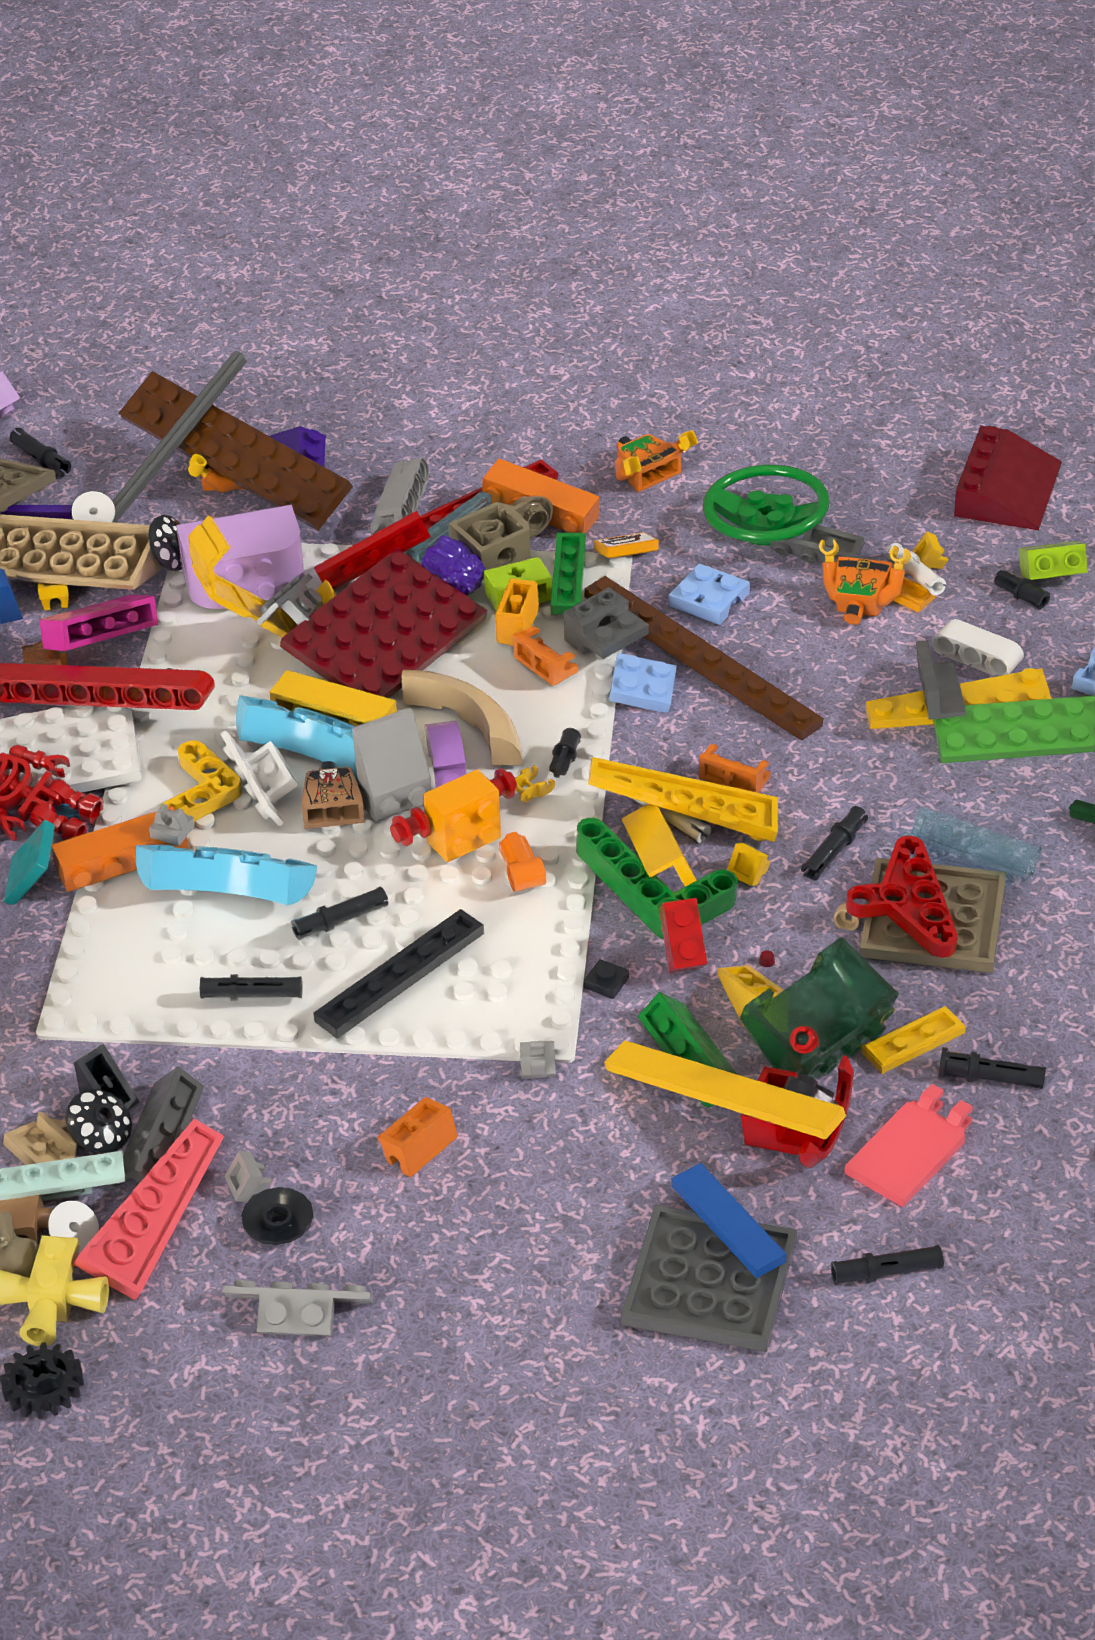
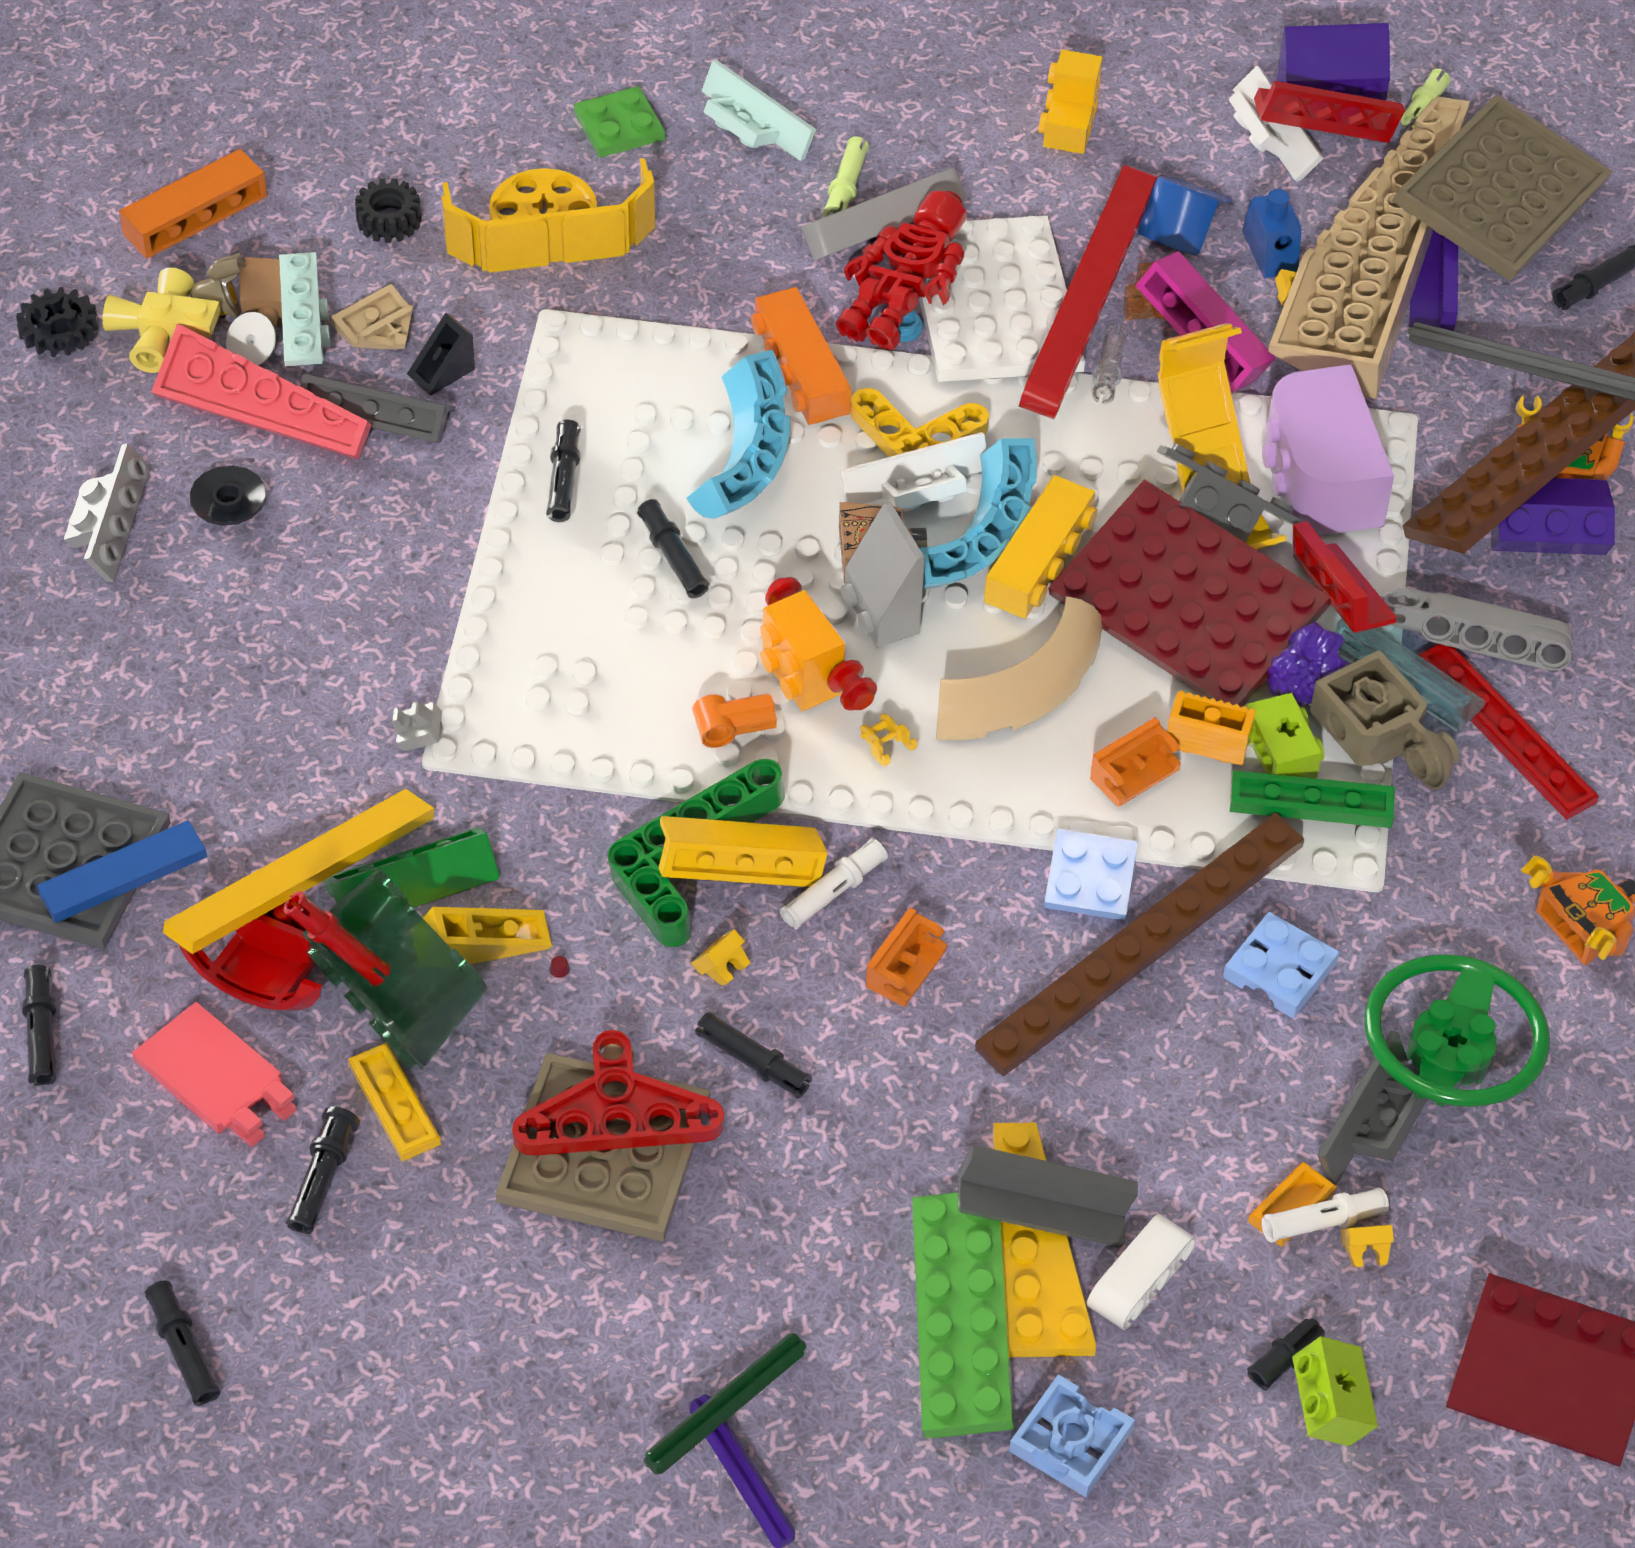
camera: 90 degrees right, 10 degrees up
(29, 863) = (785, 279): teal tile -> none
(90, 1129) = (402, 362): black dish -> none
(93, 507) = (1442, 316): white piece -> none
(165, 543) = (1377, 373): black dish -> none
(171, 825) = (806, 381): light grey tile -> none
(246, 1177) = (290, 468): light grey tile -> none
(398, 973) = (565, 599): black plate -> none
(418, 1135) = (316, 613): orange hinge -> none
(446, 751) = (931, 639): medium lavender arch -> none
(565, 752) = (937, 772): black axle -> none
(572, 507) = (1486, 779): orange brick -> none
(603, 624) = (1185, 823): dark grey brick -> none
(606, 979) = (547, 803): black plate -> none
(626, 545) = (1389, 875): light orange tile -> none
(682, 935) = (573, 859): red brick -> none
(715, 803) = (823, 918): yellow wing -> none
(808, 1086) = (268, 952): black plate -> none
(862, 584) = (1279, 1131): orange torso -> none
(975, 843) = (716, 1201): clear light blue panel -> none

